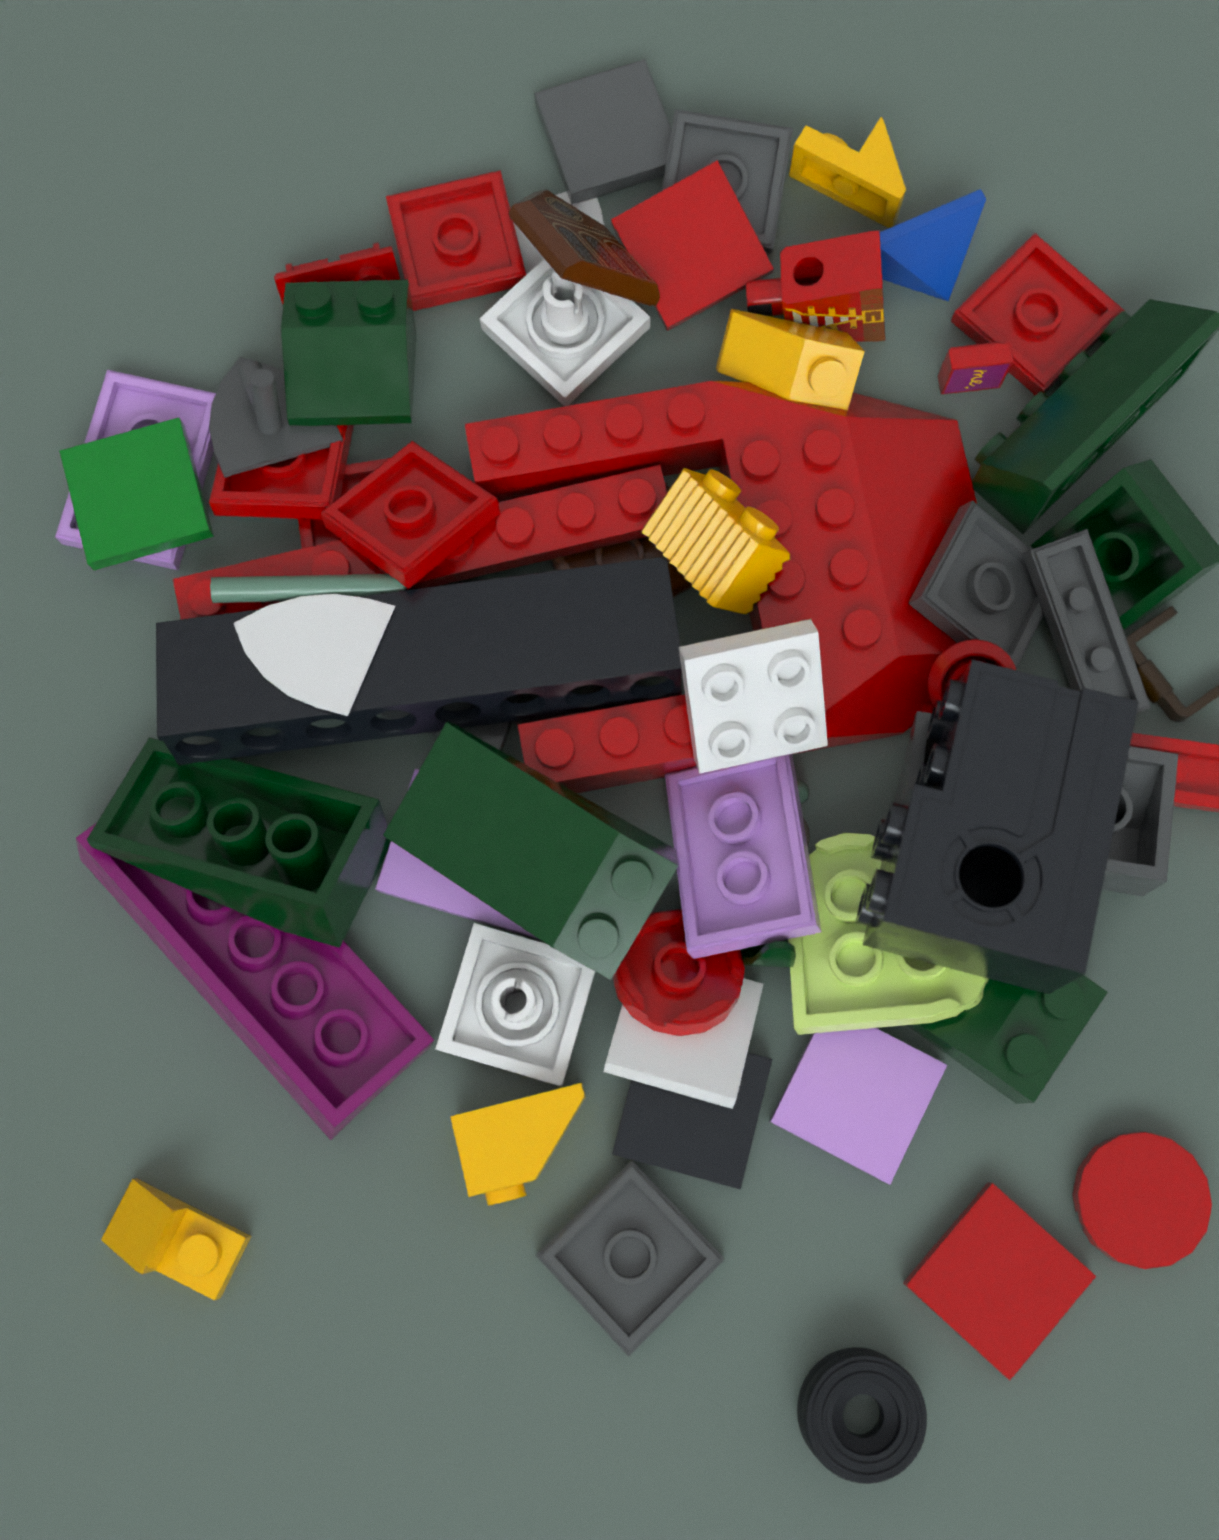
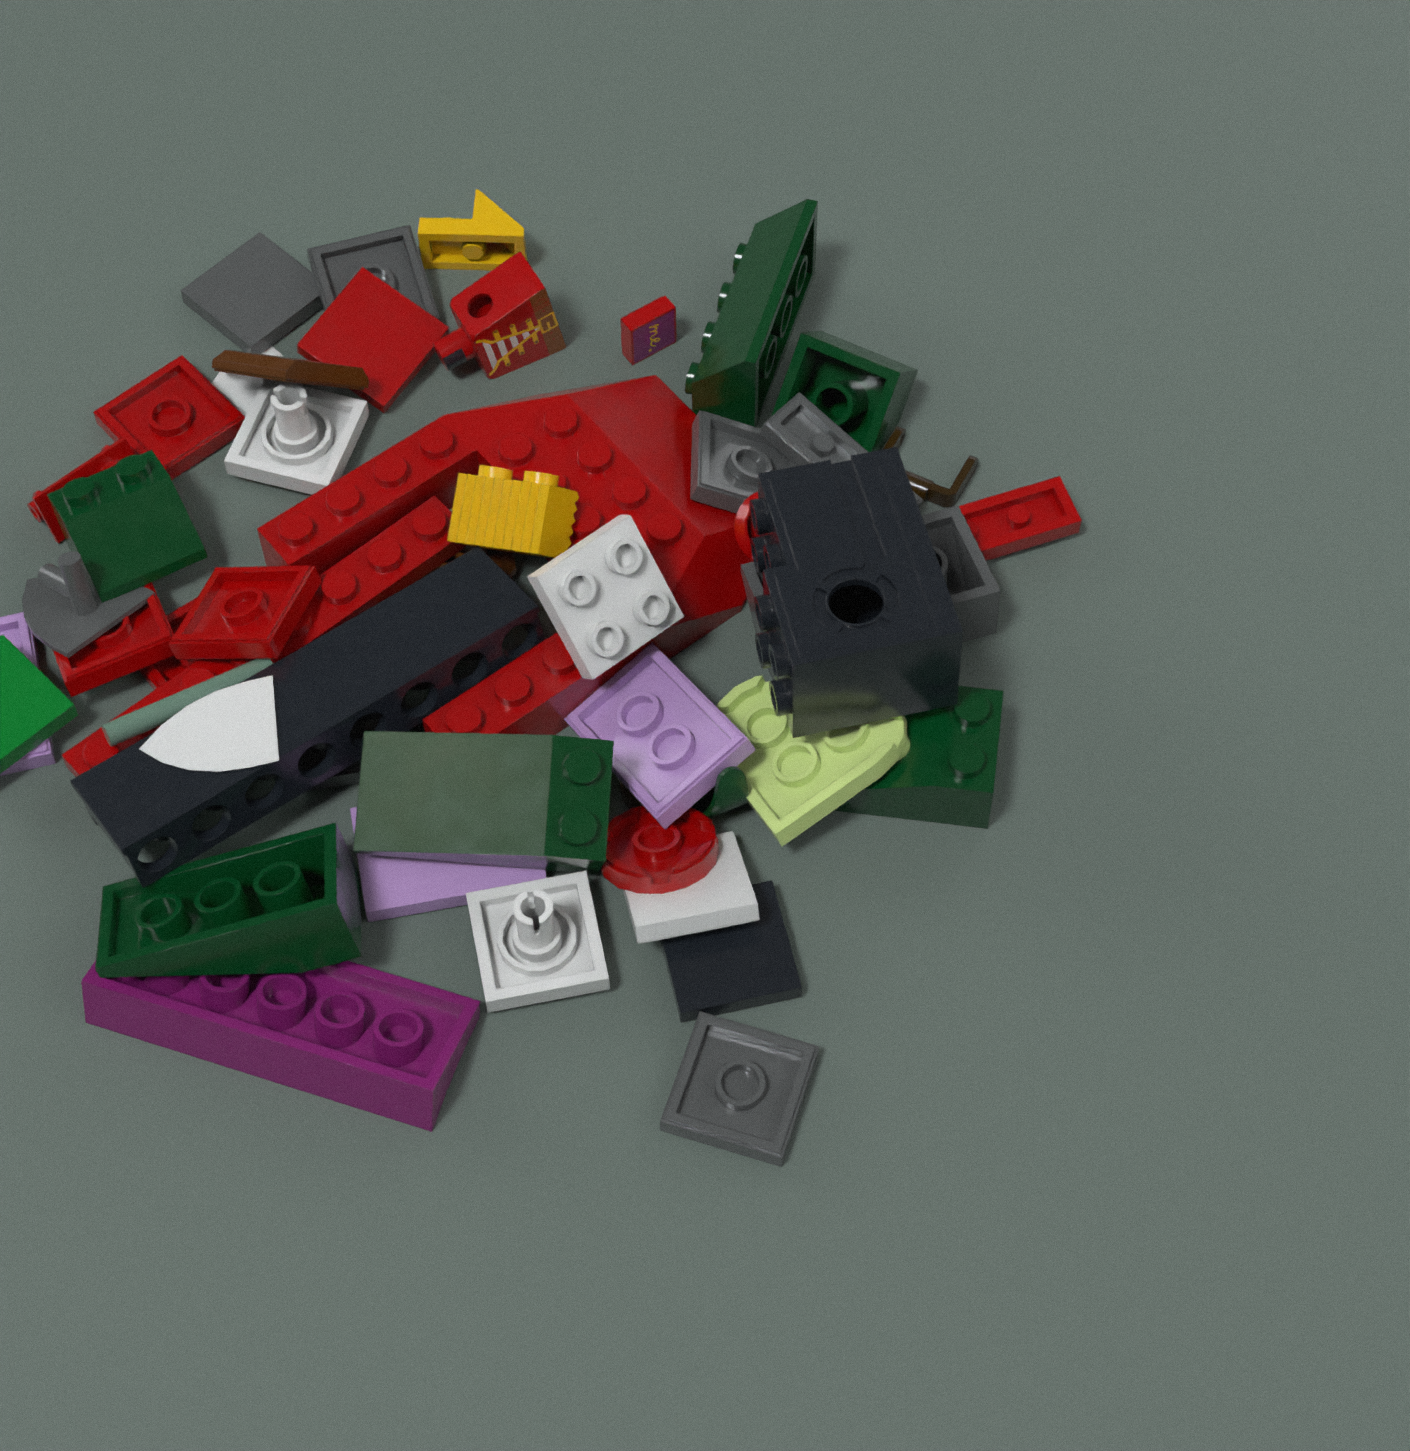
camera: 30 degrees left, 20 degrees down
(174, 1239) = (334, 1269): yellow slope -> none
(513, 1141) = (589, 1038): yellow slope -> none
(791, 359) = (498, 377): yellow slope -> none
(859, 1097) = (857, 878): lavender tile -> none
(901, 1421) = (1006, 1070): black tyre -> none
(931, 247) = (568, 261): blue slope -> none
(999, 1280) = (1048, 956): red tile -> none
(1040, 309) = (678, 266): red tile -> none
(1142, 1200) = (1124, 843): red tile -> none

